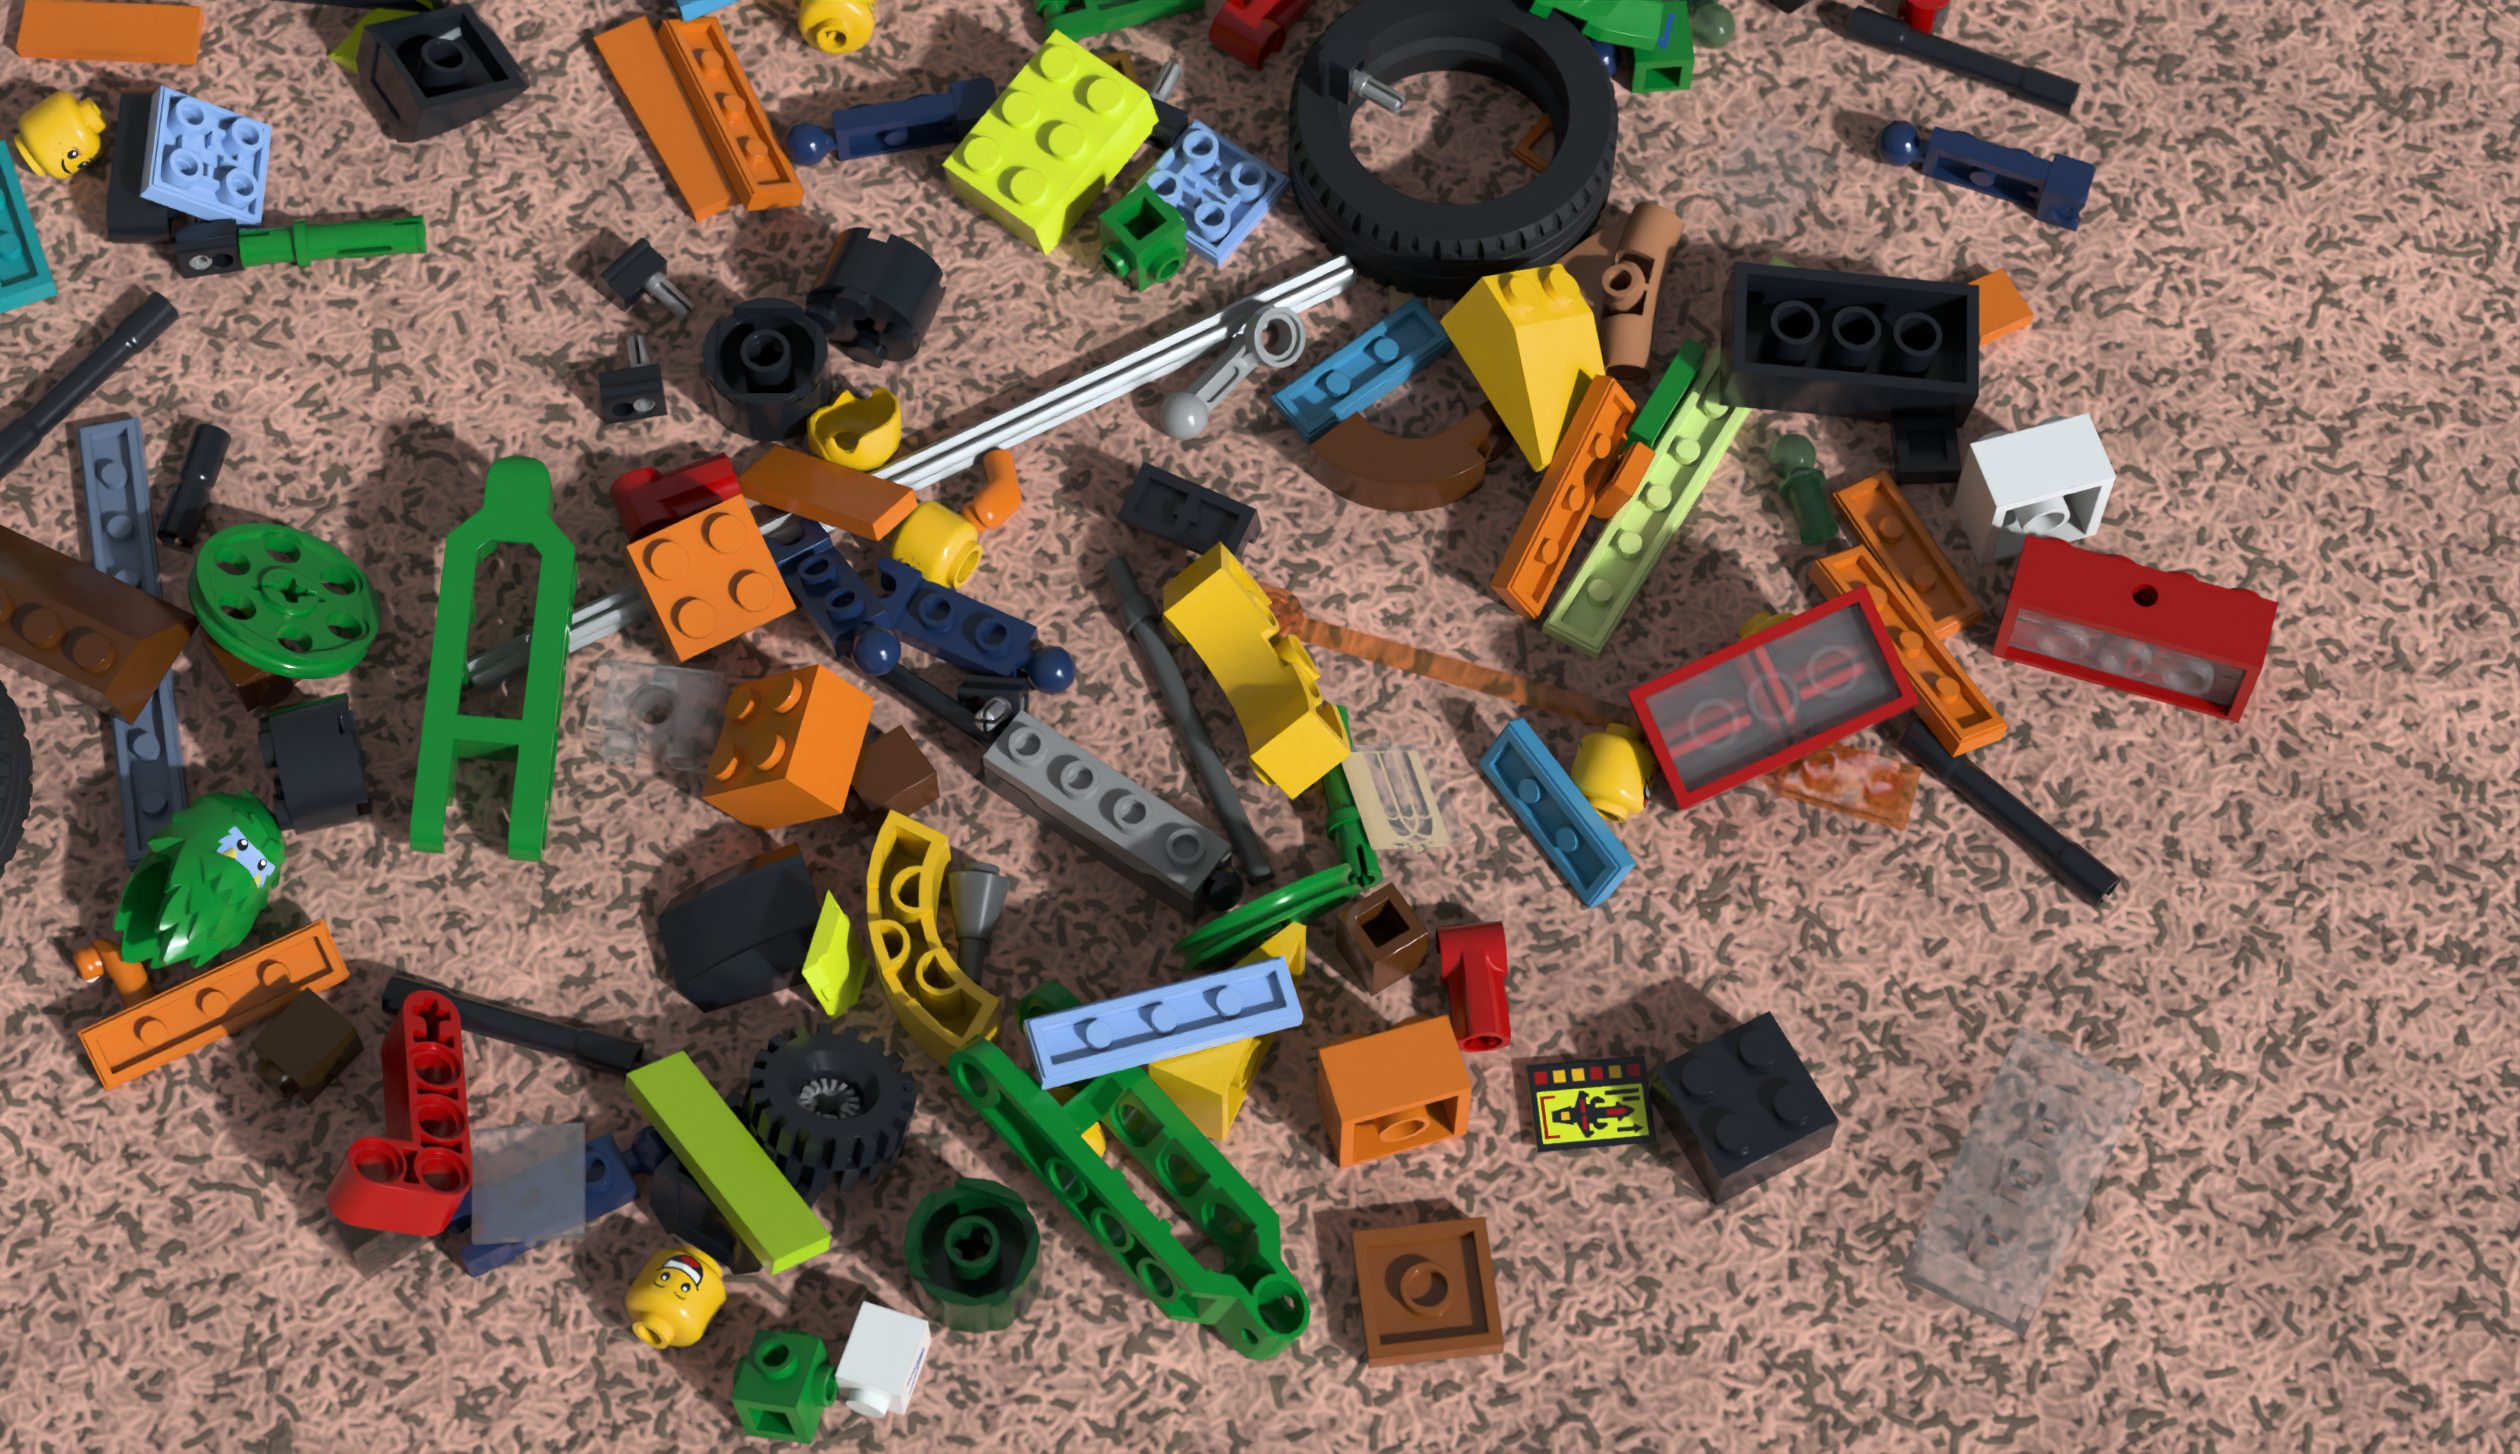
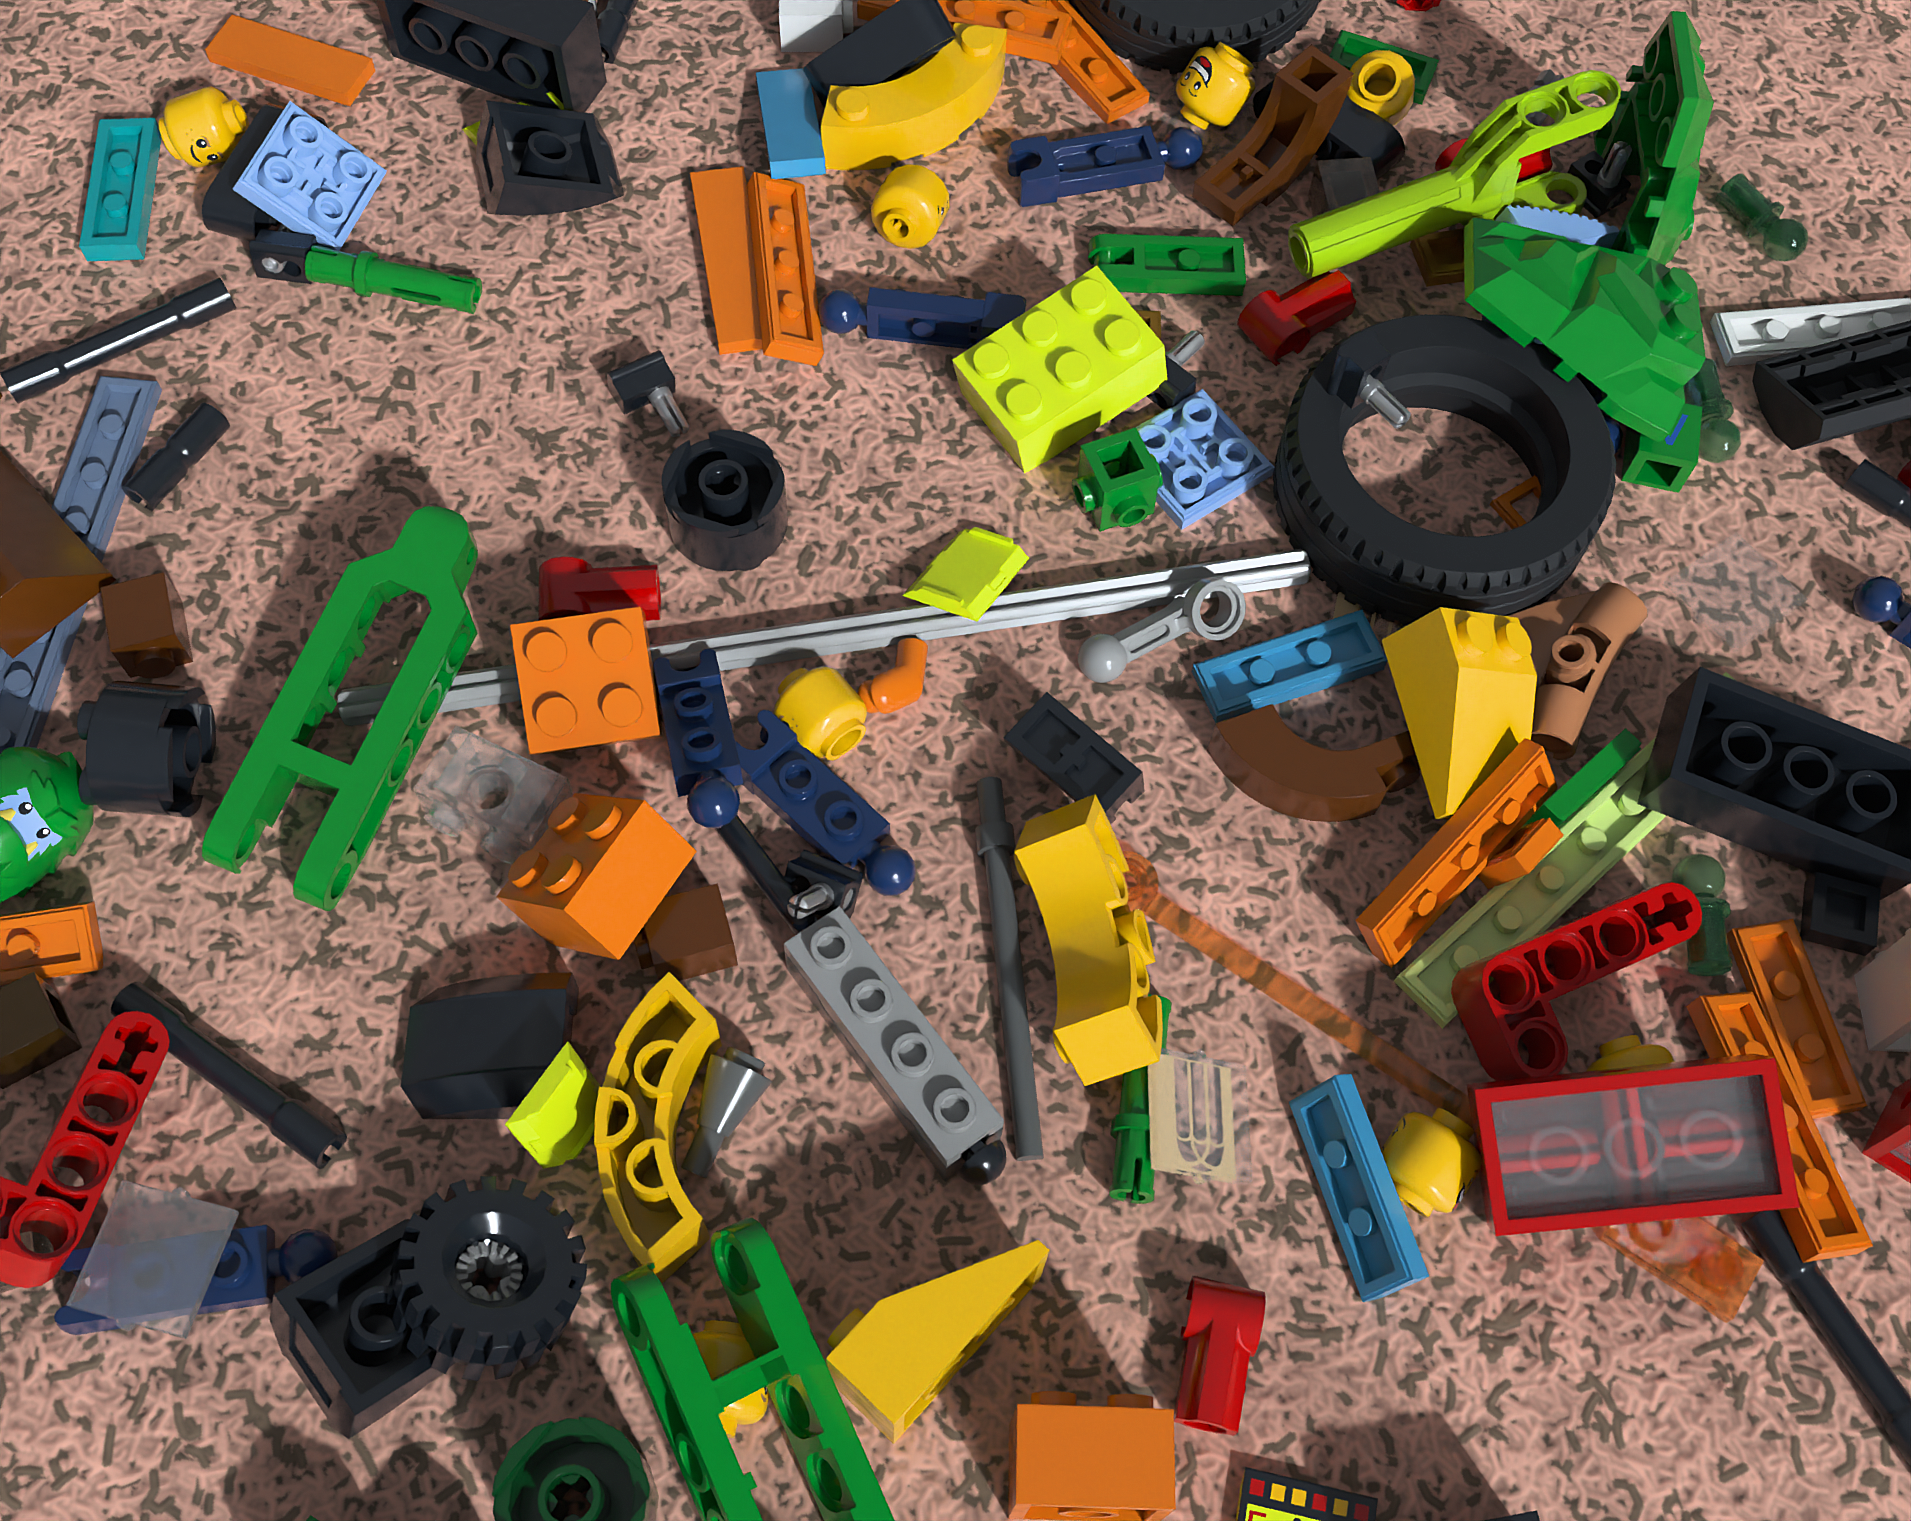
camera: 15 degrees right, 0 degrees up
(284, 601) = (166, 593): green wedge -> none
(633, 391) = (601, 486): black piece -> none
(675, 1297) = (253, 1437): yellow head -> none
(727, 1162) = (352, 1316): lime tile -> none
(827, 492) = (736, 632): orange tile -> none
(870, 422) = (800, 577): yellow hair -> none
(876, 296) = (848, 461): black brick -> none
(1027, 371) = (969, 573): none -> neon yellow piece
(1162, 1022) = (854, 1318): light blue tile -> none
(1265, 917) = (1012, 1221): green wedge -> none
(1381, 939) = (1131, 1273): reddish brown brick -> none
(1699, 561) = (1578, 960): none -> red beam

